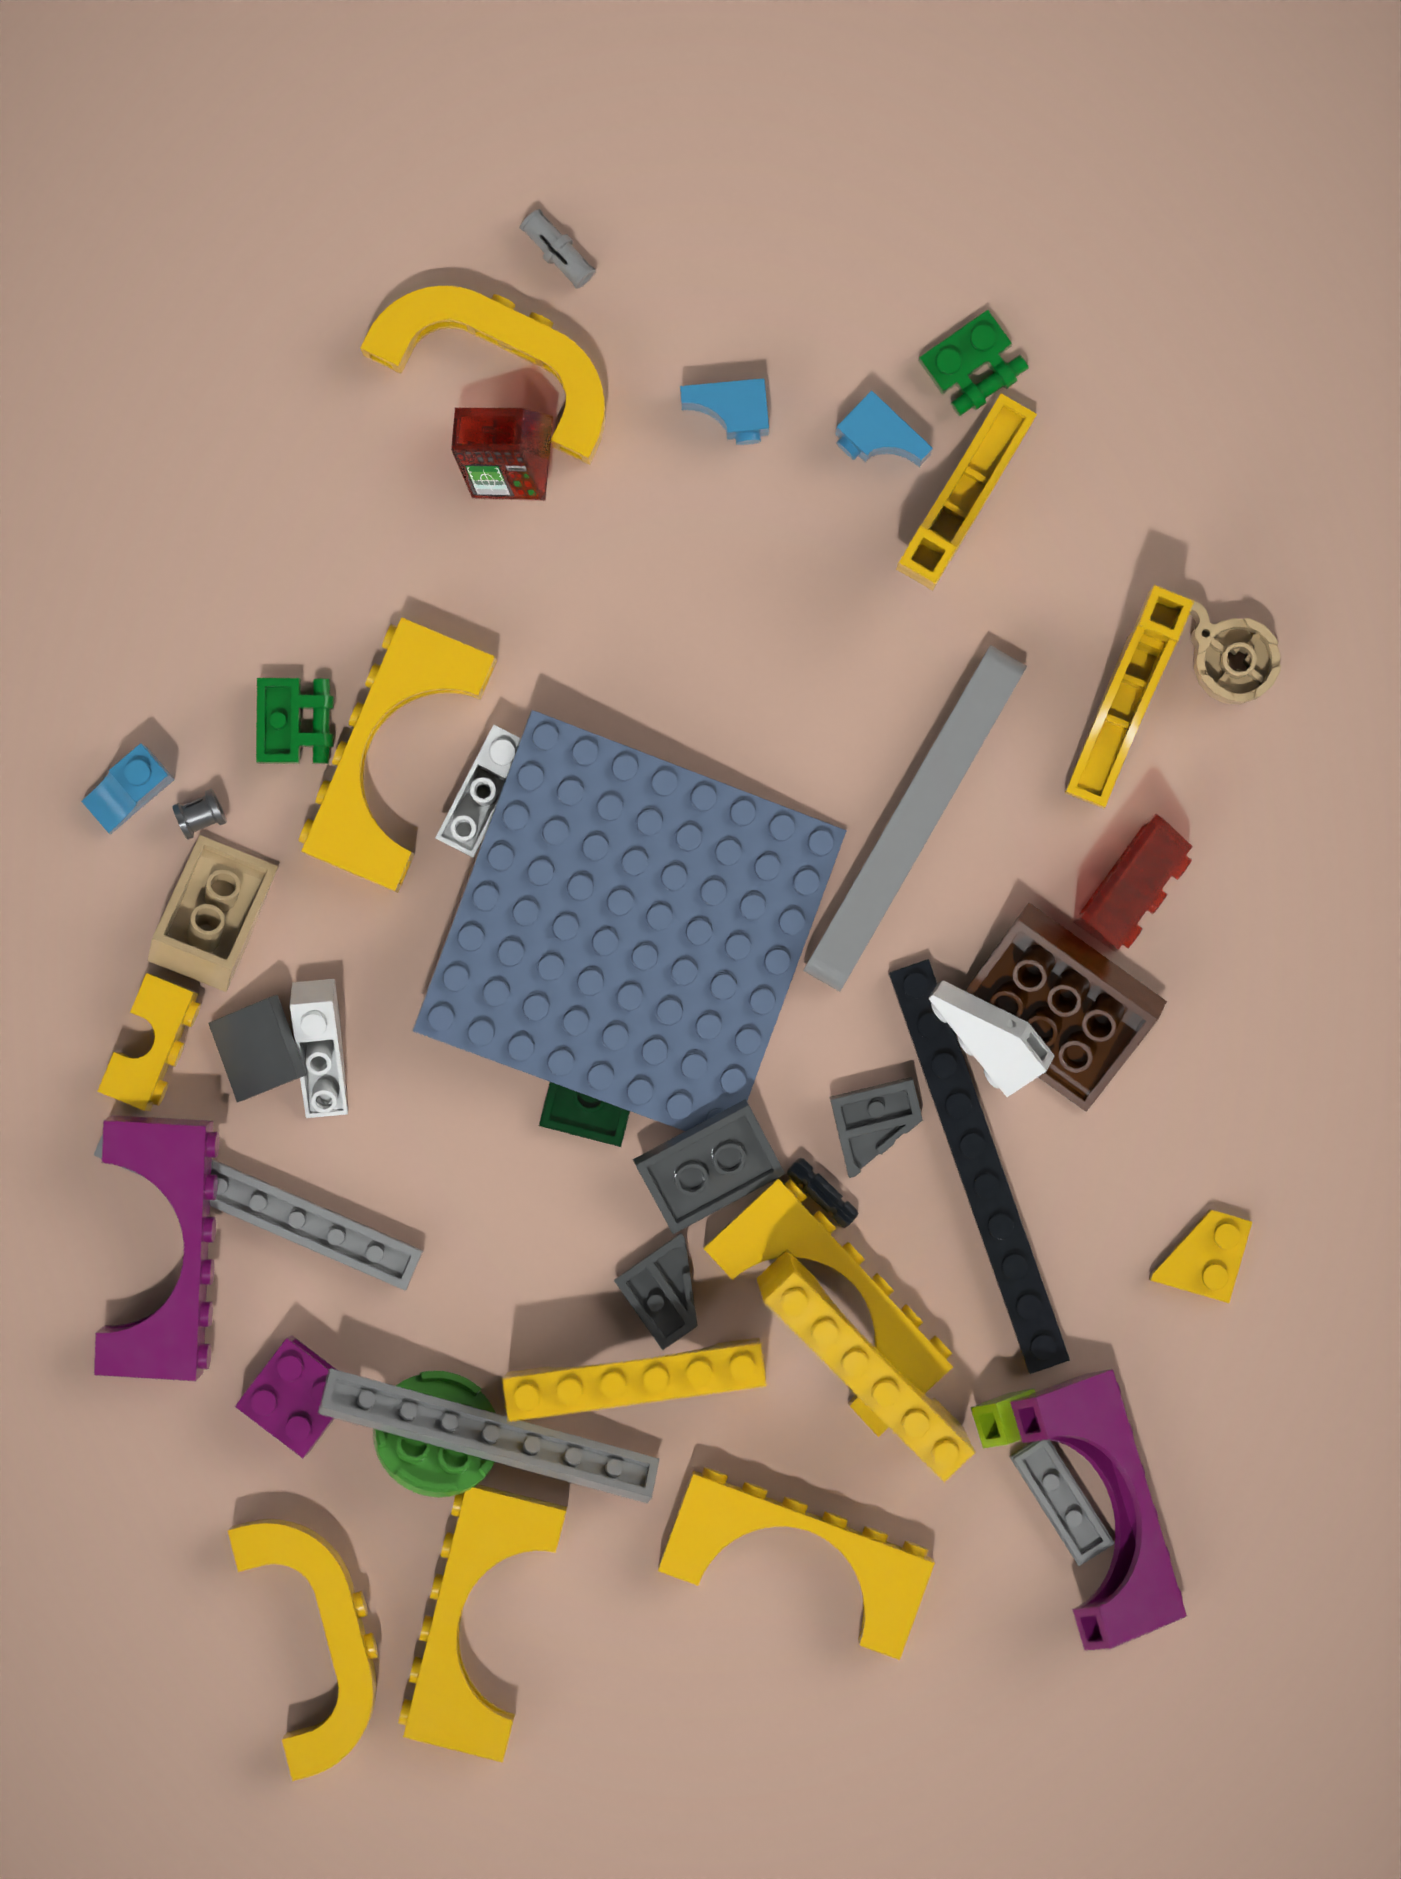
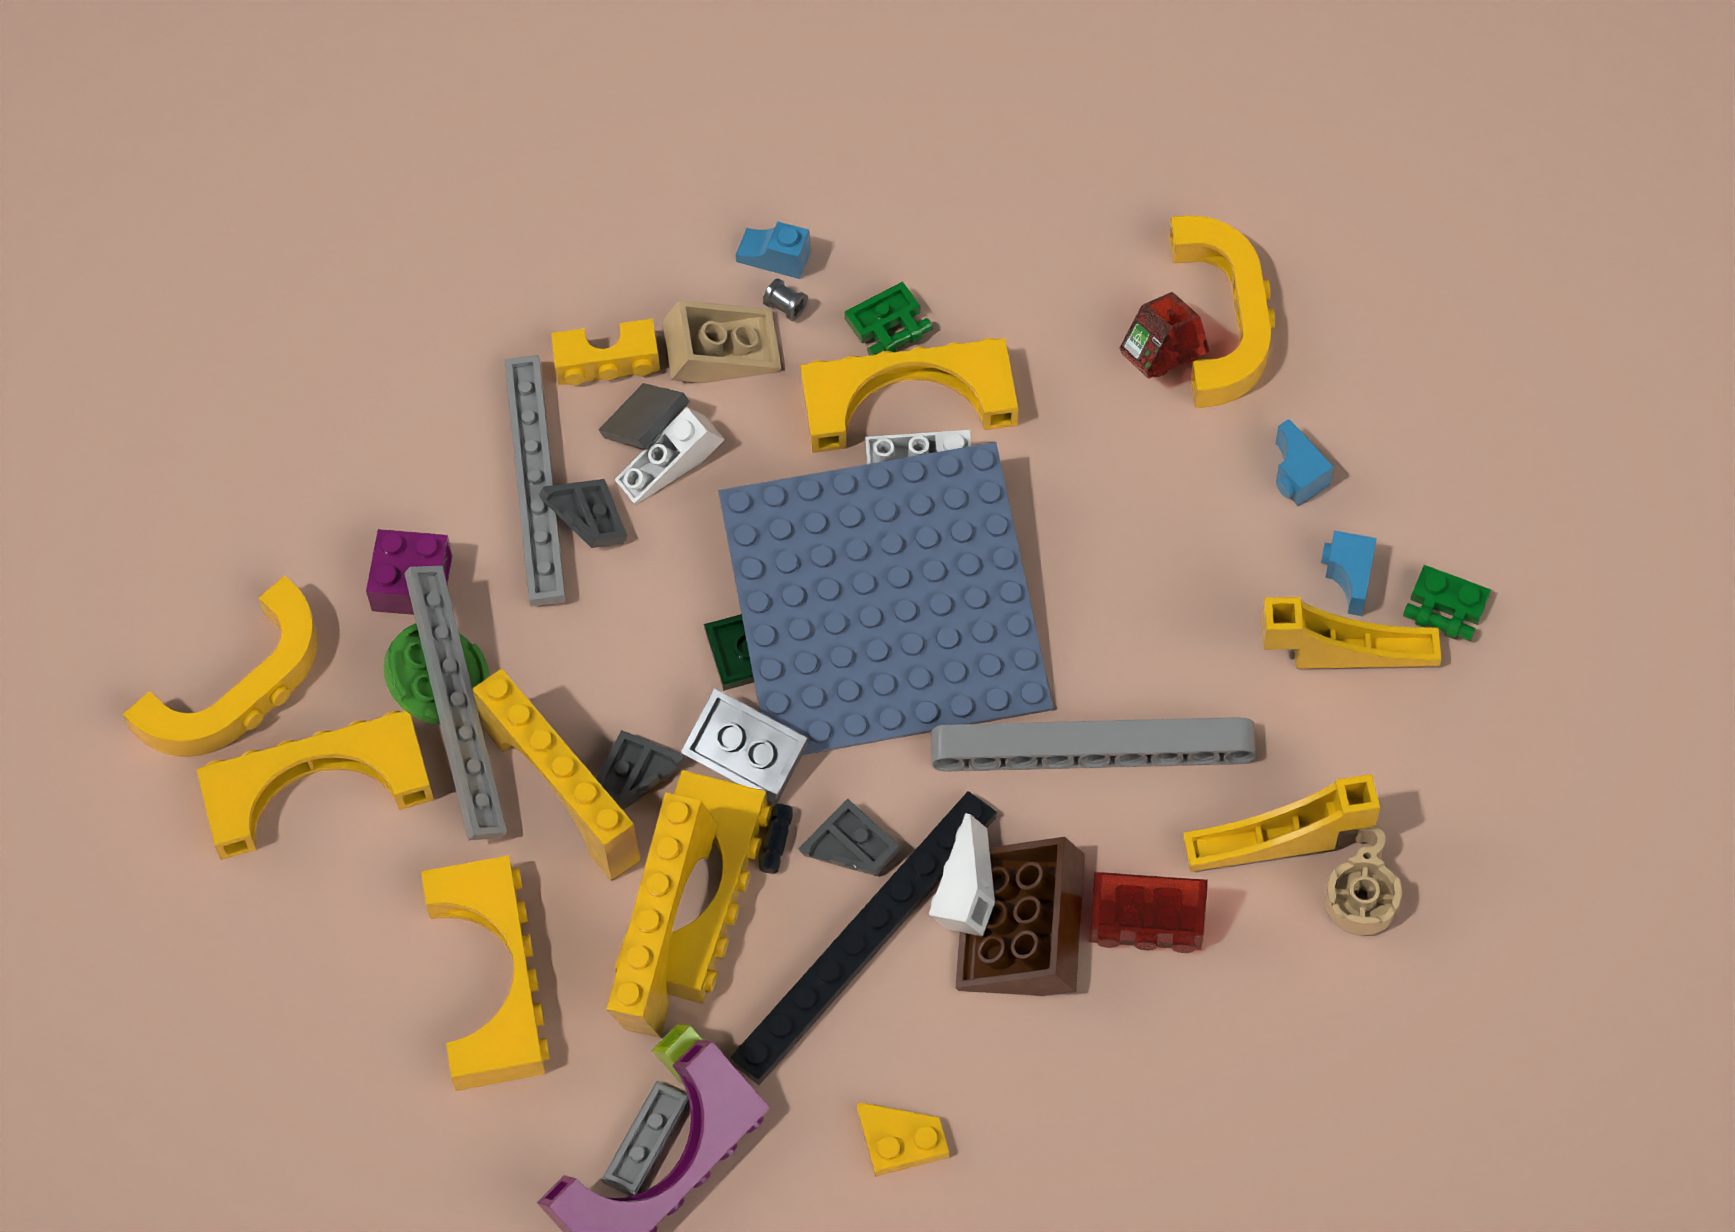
camera: 60 degrees right, 25 degrees down
(178, 1162) = (411, 471): magenta arch -> none
(335, 1171) = (587, 511): none -> dark grey wing
(557, 248) = (1327, 304): light grey pin -> none

